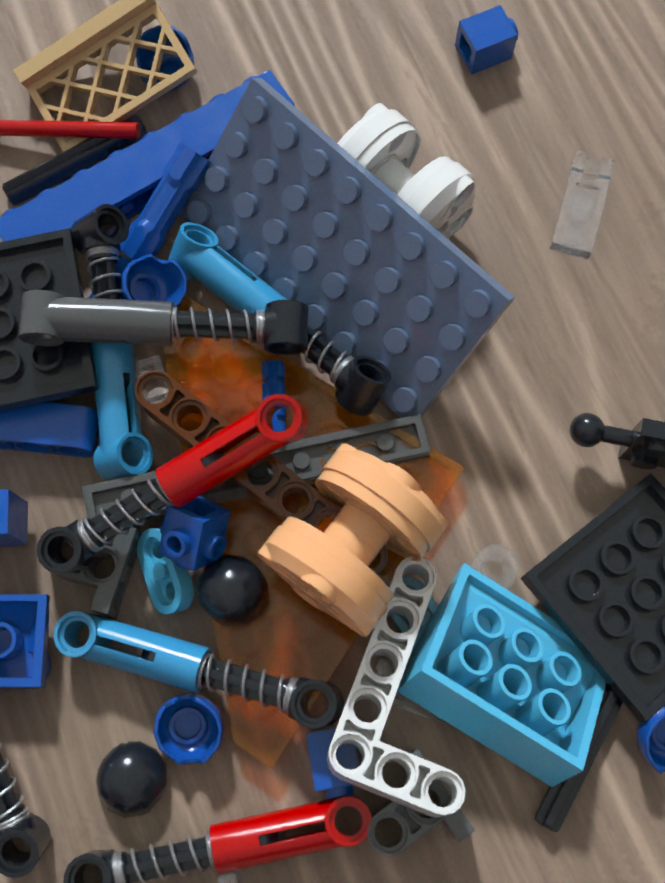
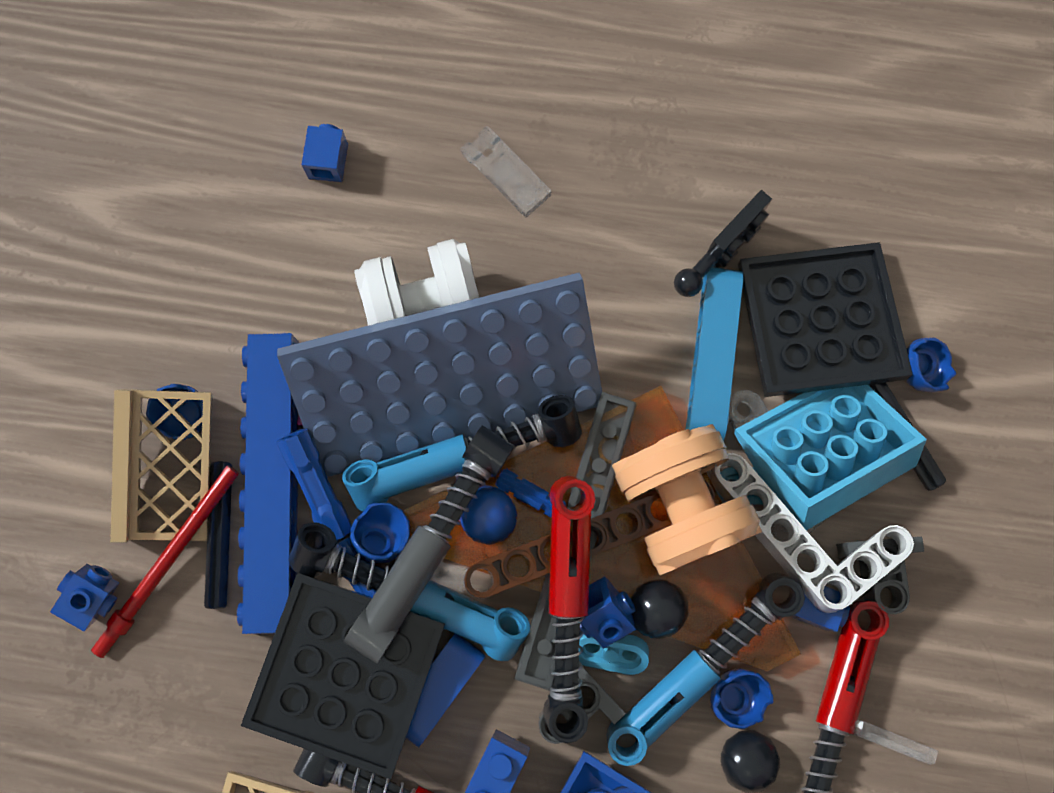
camera: 60 degrees left, 5 degrees up
(228, 373) = (489, 516): none -> blue hair
(535, 502) = (715, 350): none -> dark azure beam

